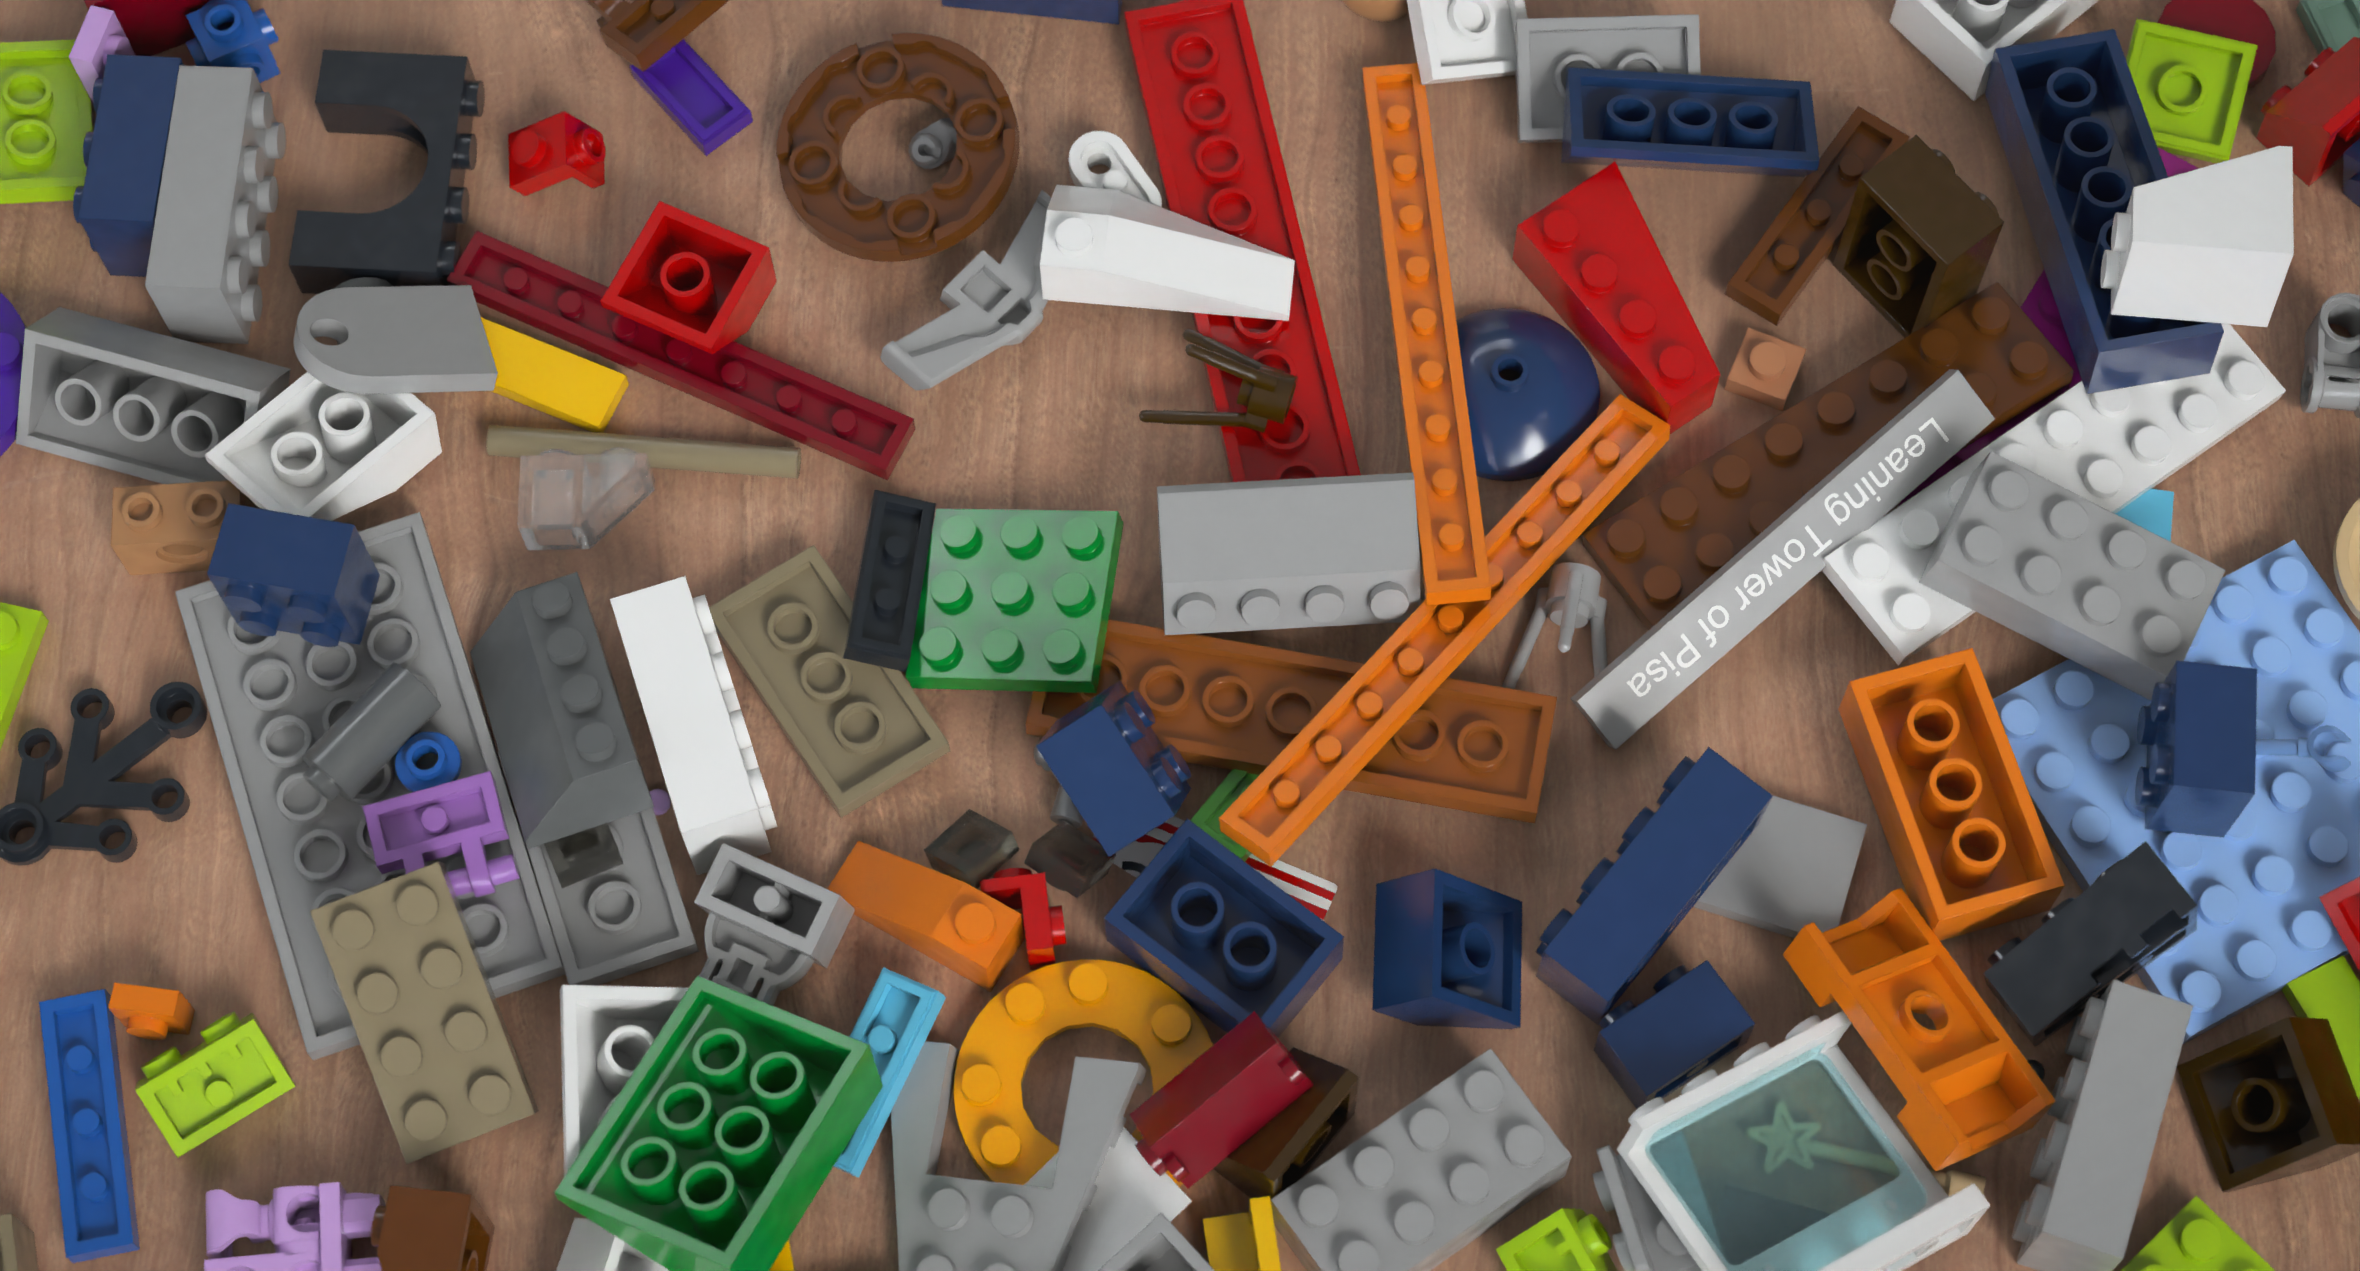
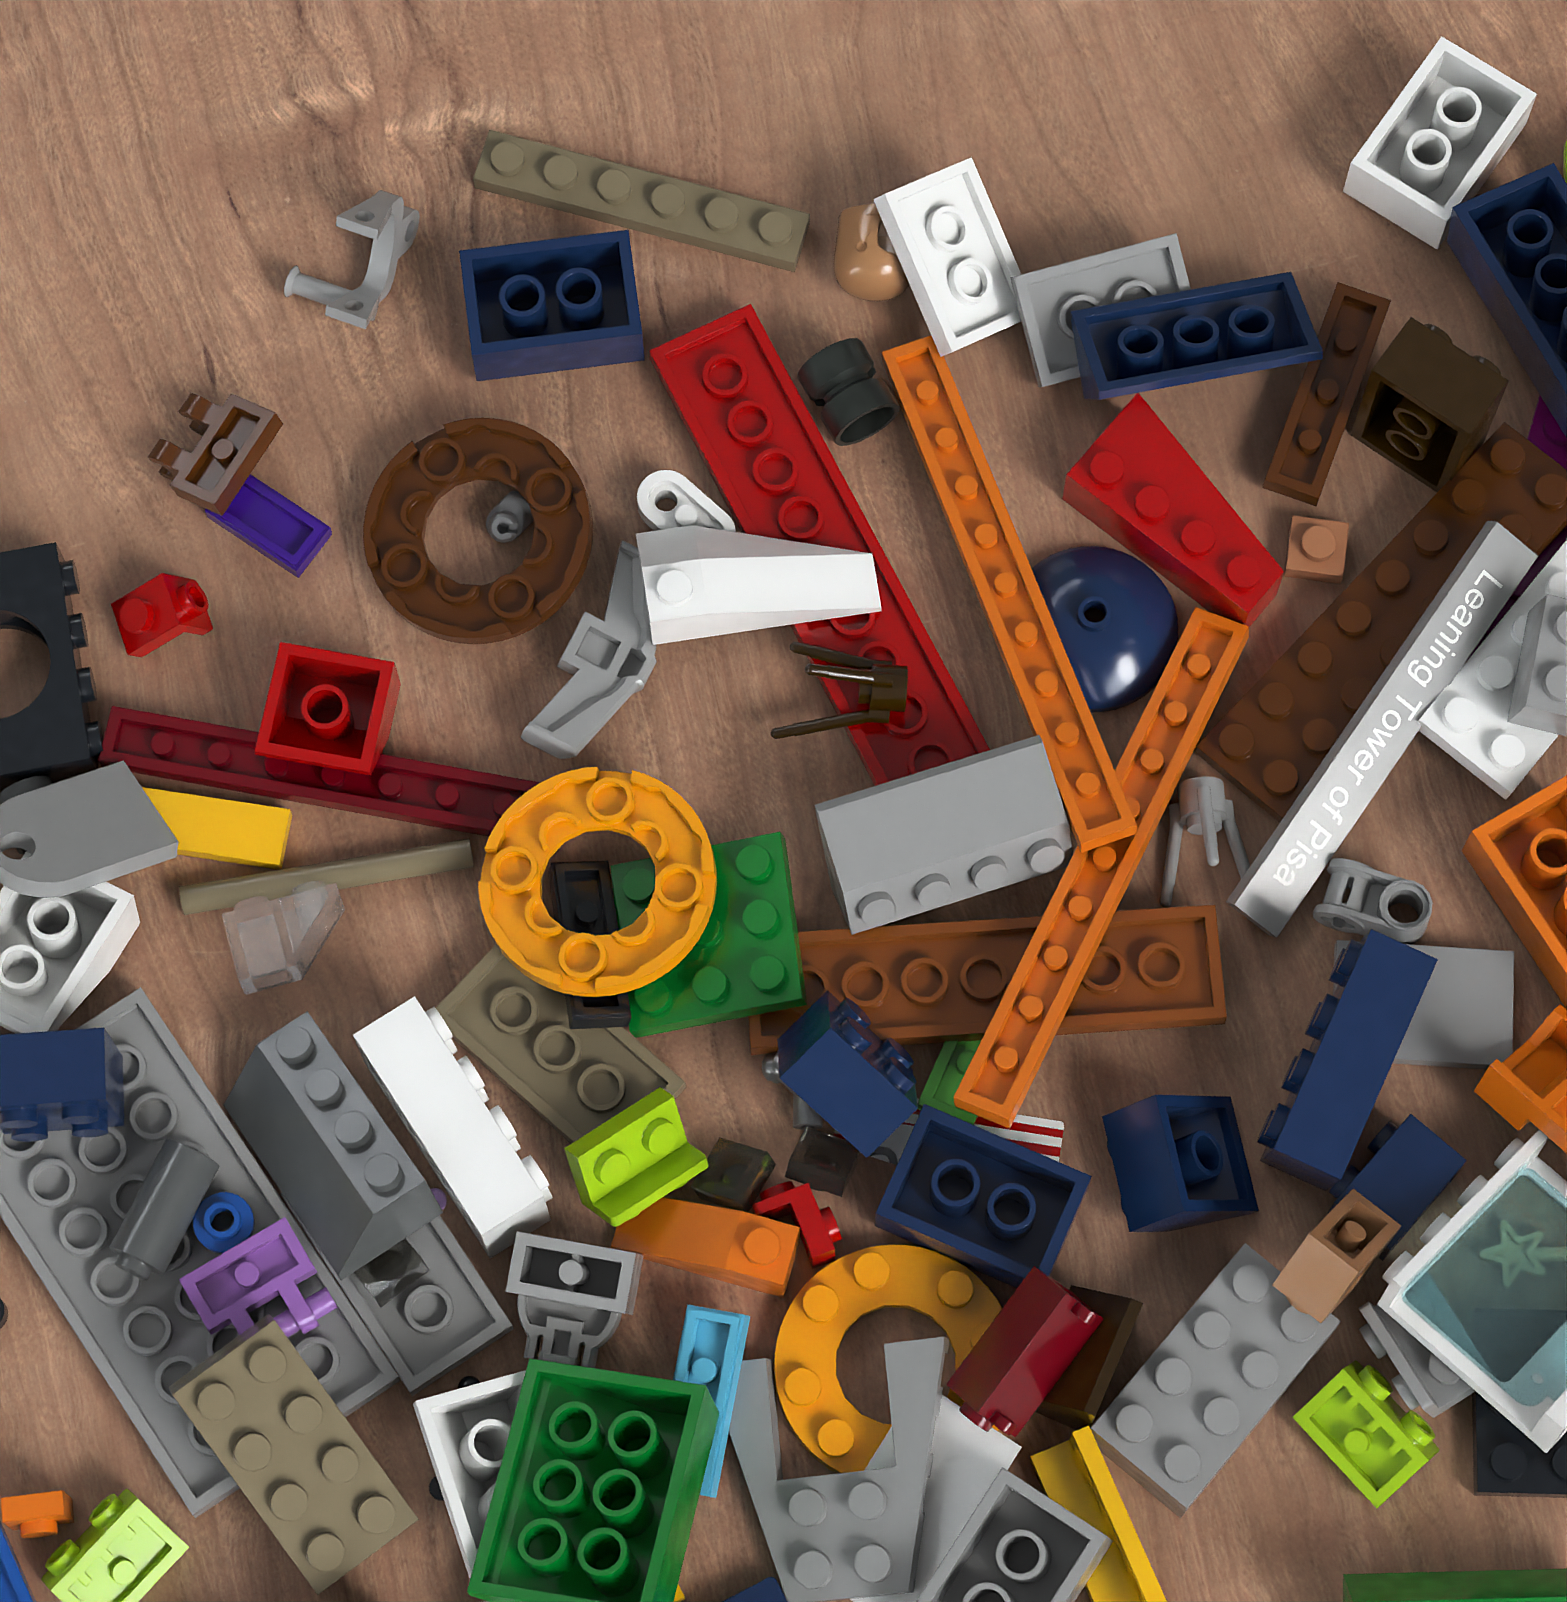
camera: 15 degrees left, 5 degrees up
(870, 804) = (634, 1159): none -> lime bracket
(895, 437) = (562, 810): none -> light orange plate
(1316, 98) = (852, 399): none -> pearl dark grey wheel
(1582, 1083) = (1336, 1256): none -> medium nougat brick
(1728, 728) = (1369, 902): none -> light grey piece

